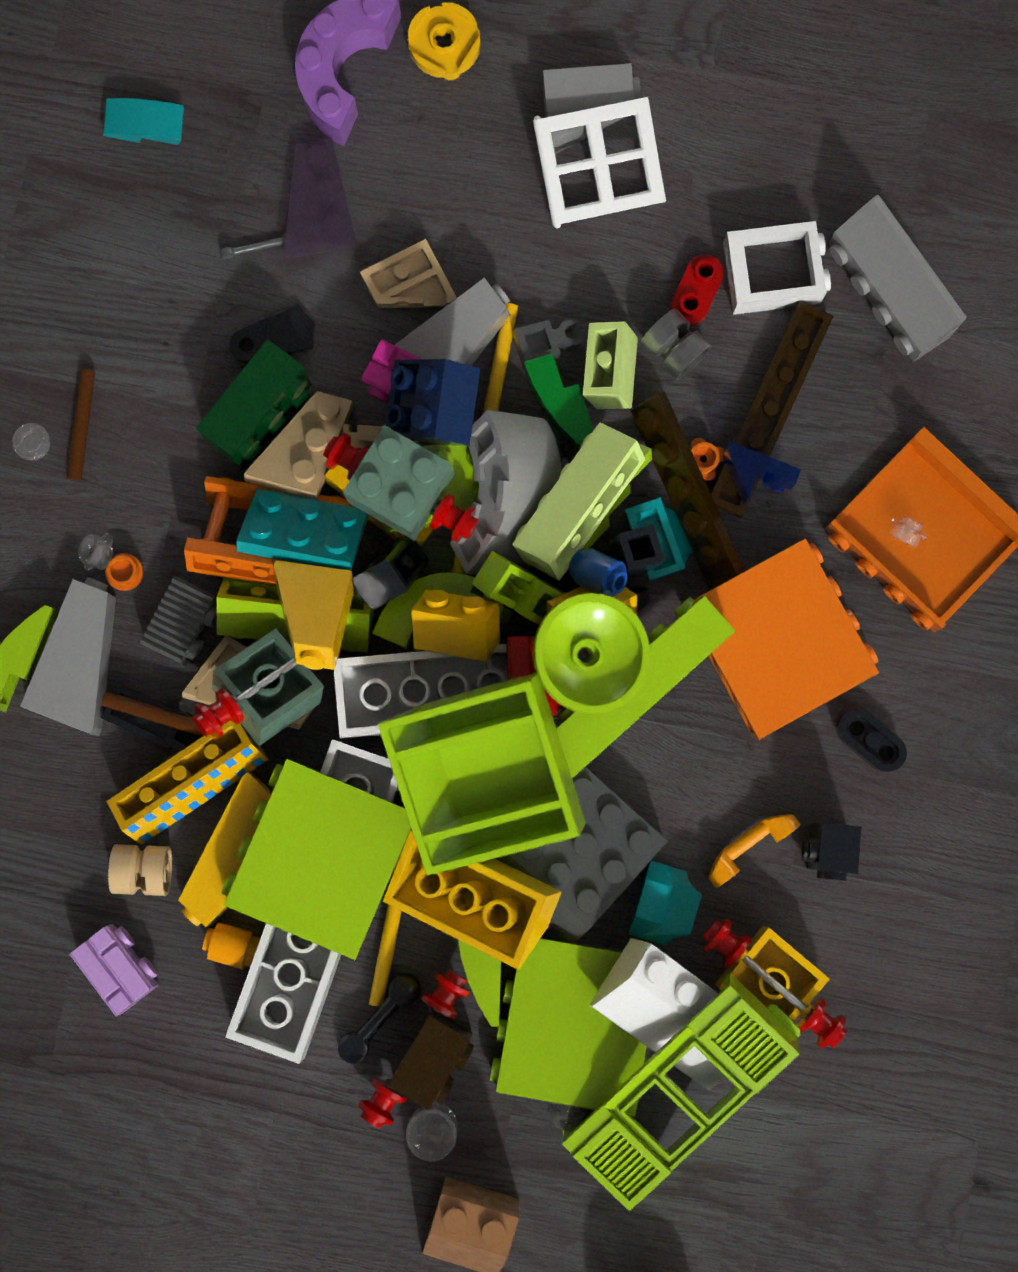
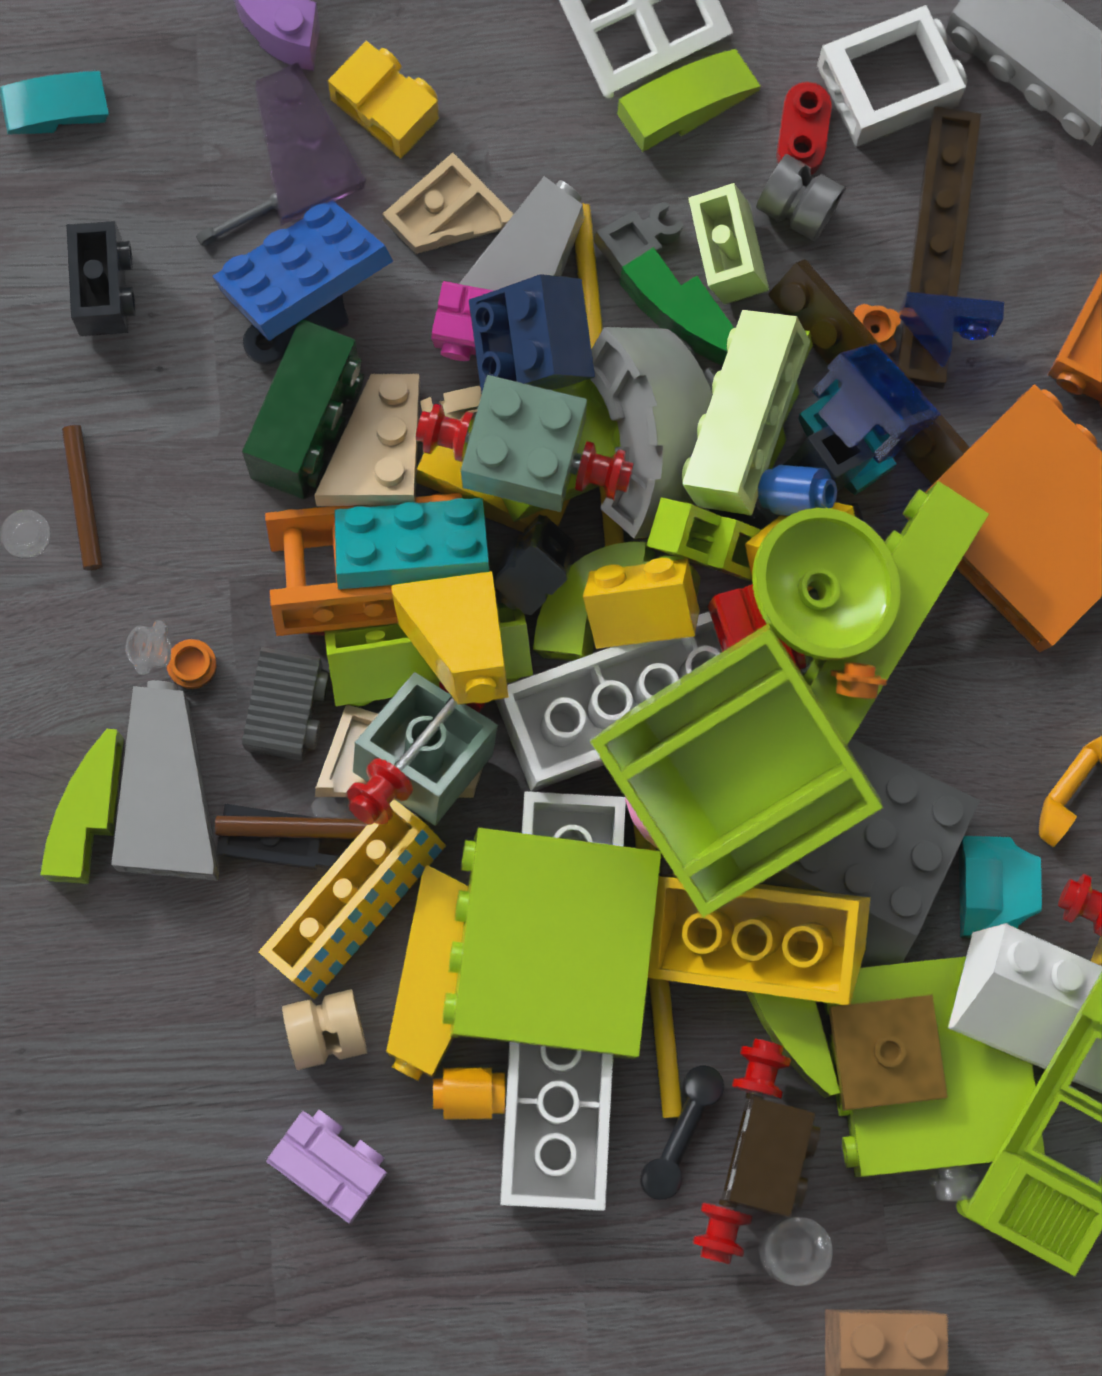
camera: 25 degrees left, 5 degrees down
(135, 265) = (97, 278): none -> black brick
(283, 299) = (301, 268): none -> blue plate
(386, 183) = (383, 100): none -> yellow brick
(541, 1008) = (887, 1052): none -> pearl gold plate
(594, 732) = (858, 680): none -> orange plate
(614, 243) = (686, 98): none -> lime slope
(678, 514) = (873, 397): none -> clear blue panel

